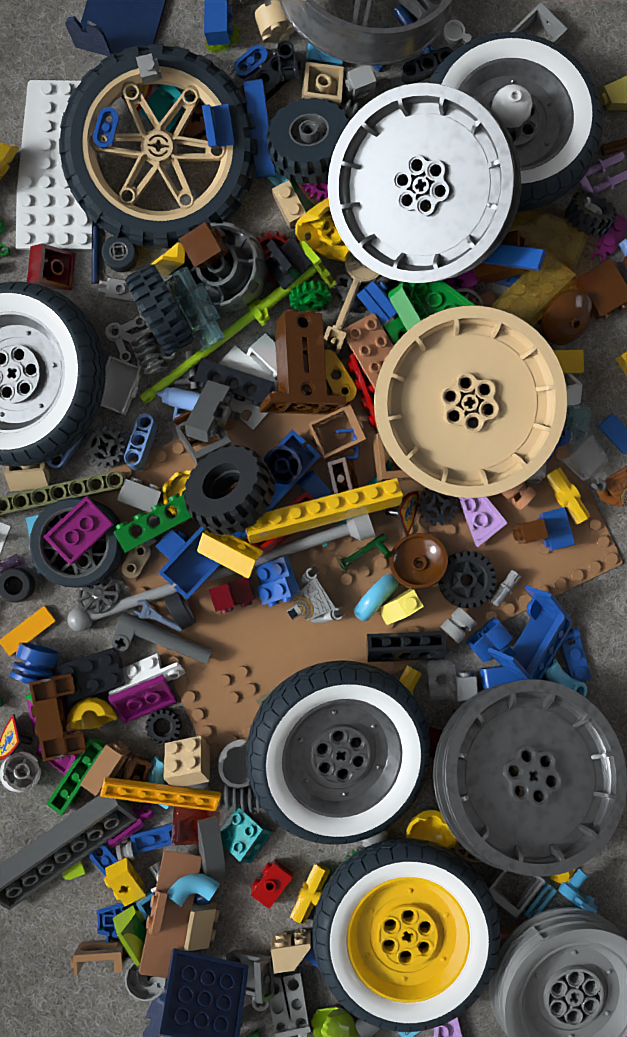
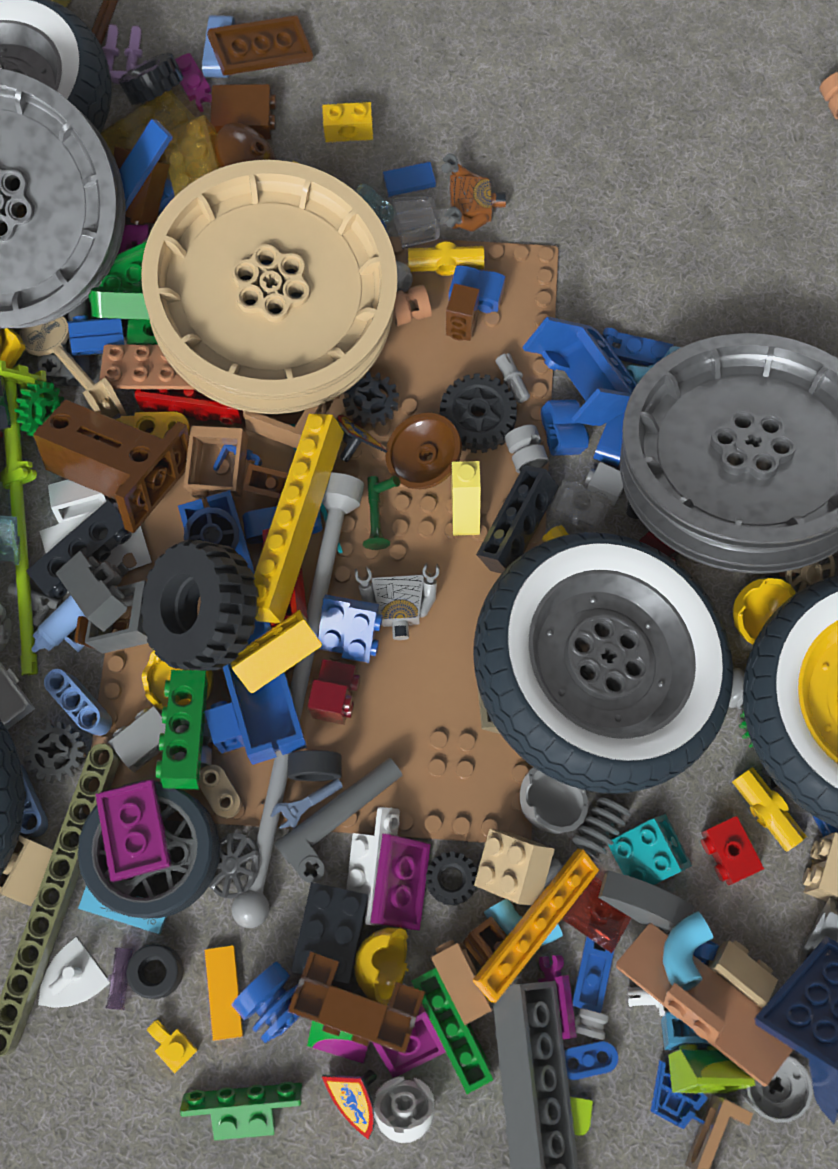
camera: 55 degrees left, 15 degrees down
(124, 882) = (631, 1046): yellow brick -> none
(375, 597) = (438, 525): medium azure cylinder -> none
(481, 518) = (412, 361): lavender wing -> none

